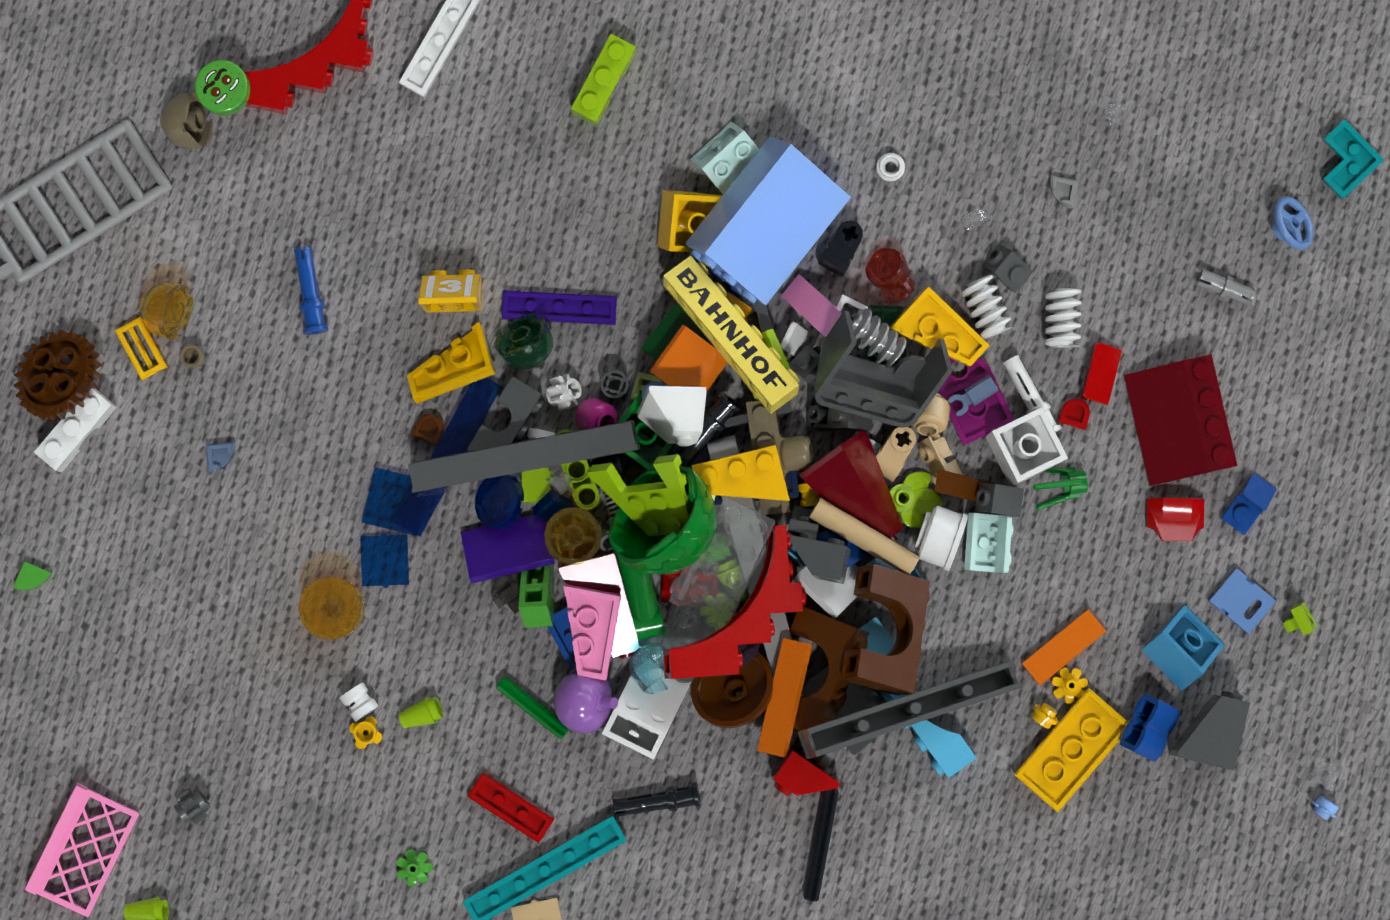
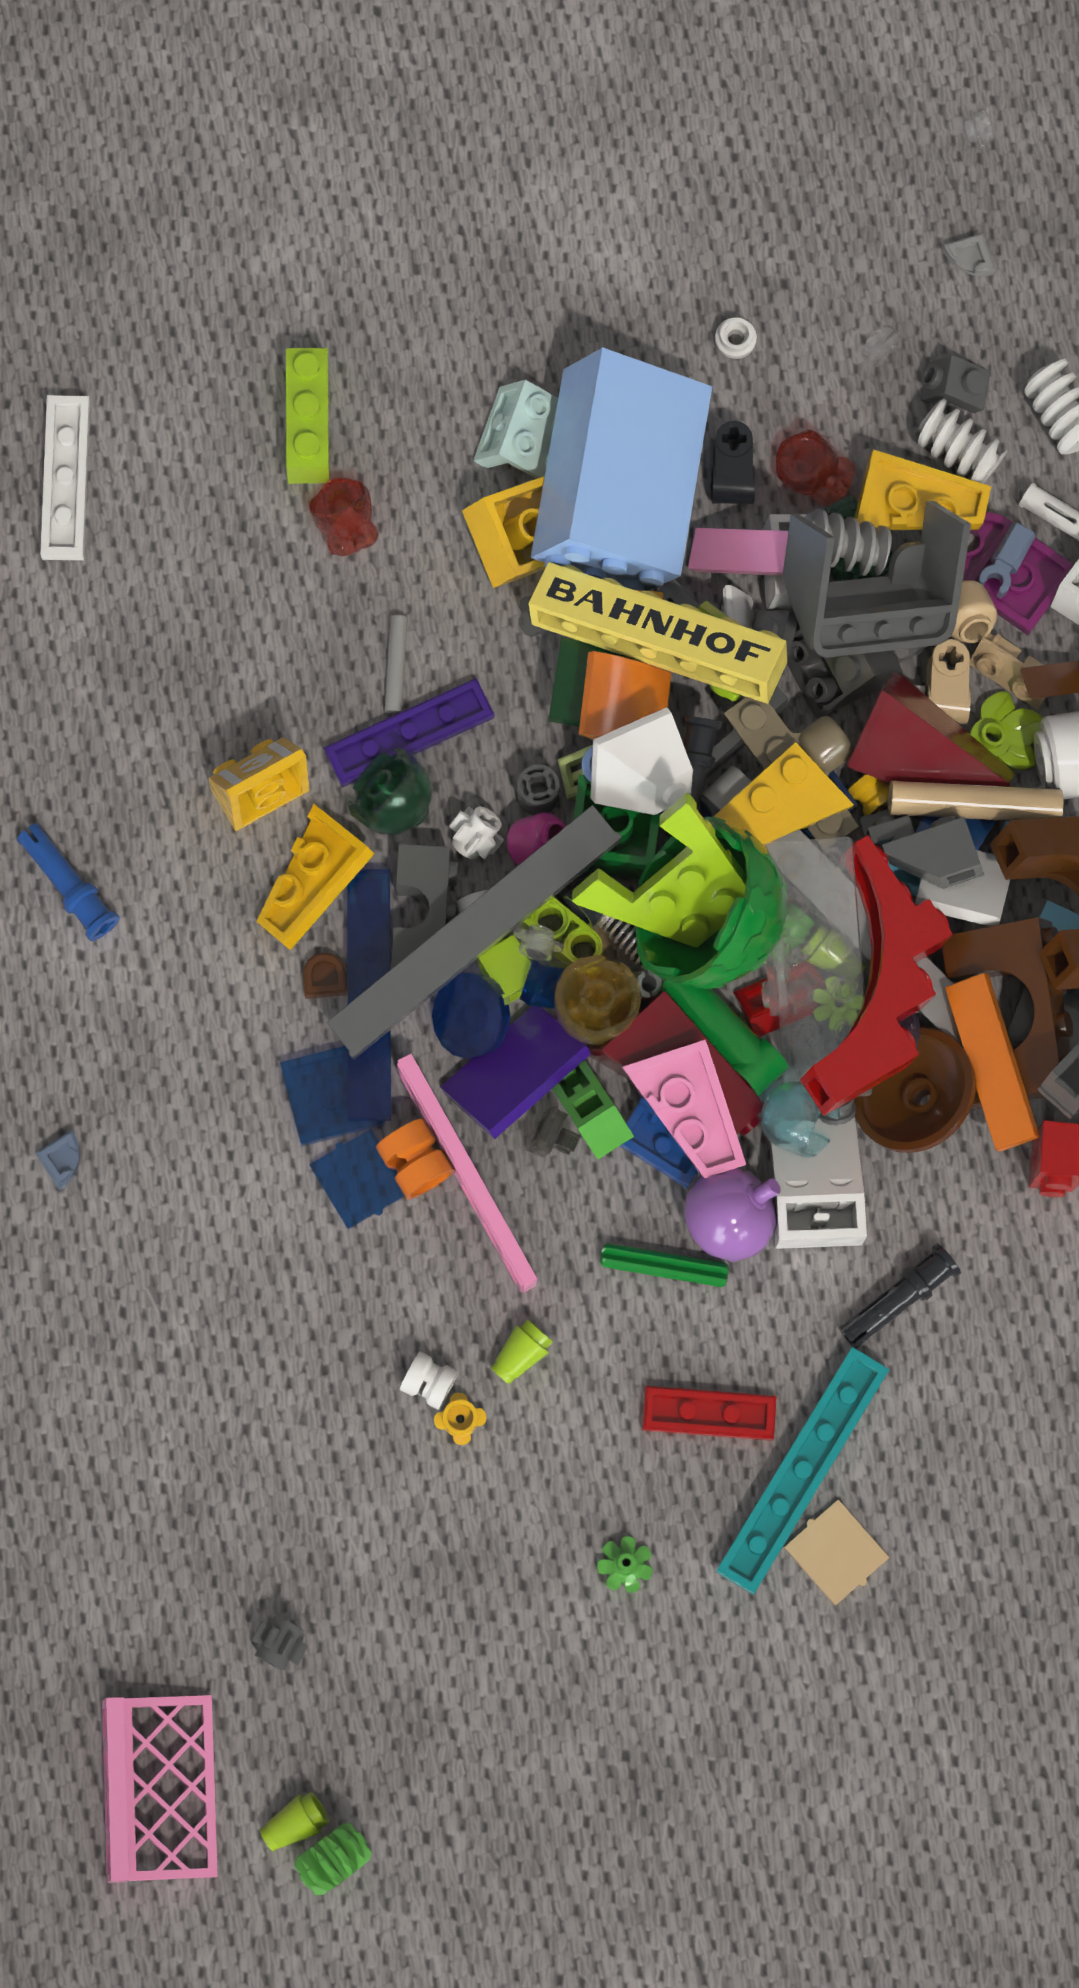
camera: 35 degrees left, 10 degrees down
(315, 604) = (320, 1248): clear yellow wheel -> none
(421, 568) = (414, 1158): none -> orange wheel
(446, 592) = (466, 1174): none -> bright pink tile
(574, 261) = (395, 664): none -> light grey piece
(592, 154) = (344, 516): none -> clear red hair

